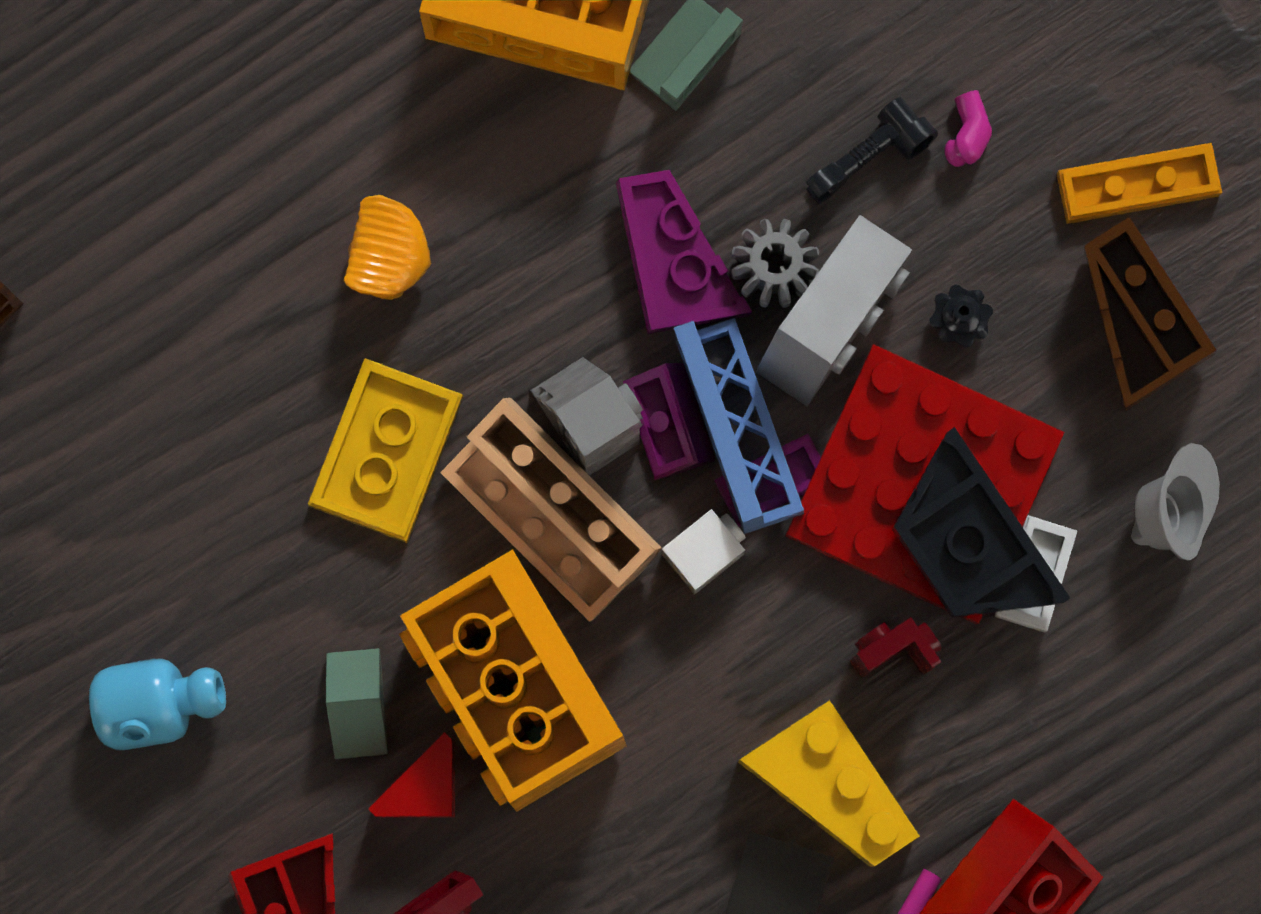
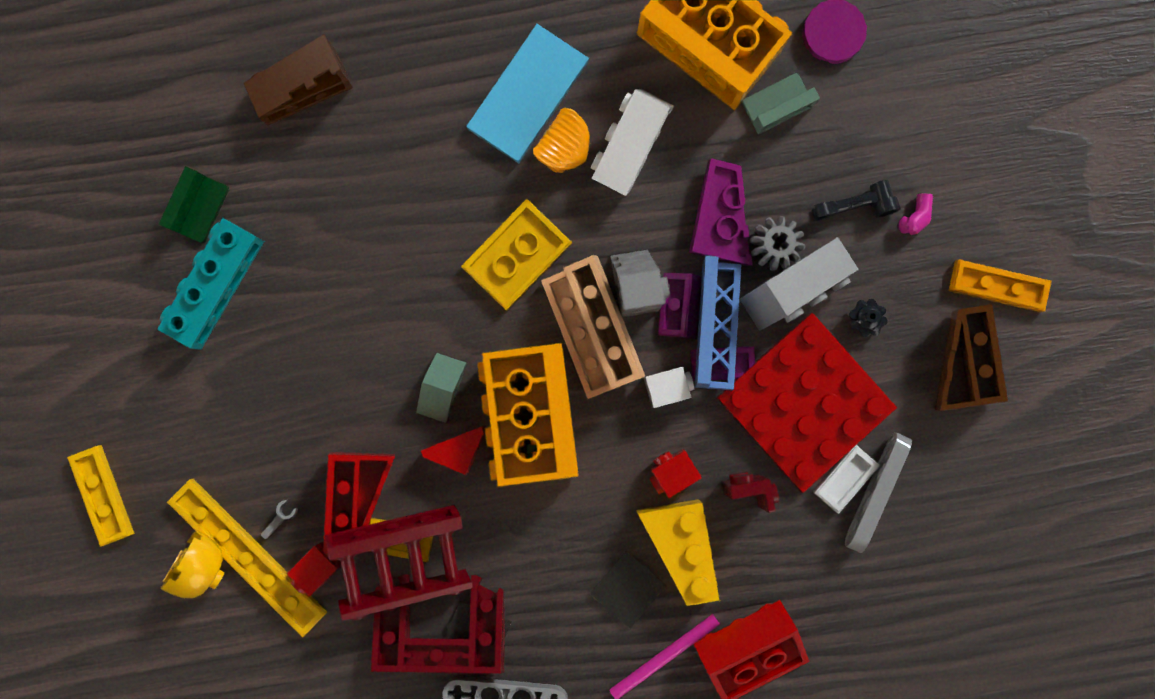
camera: 25 degrees right, 5 degrees up
(151, 702) = (327, 339): medium azure piece -> none
(297, 199) = (527, 93): none -> medium azure tile
(486, 203) = (630, 140): none -> white wedge
(768, 677) = (673, 473): none -> red brick
(971, 540) = (820, 446): black wing -> none
(1091, 573) = (878, 492): none -> light grey beam
(1180, 505) = (942, 476): light grey piece -> none

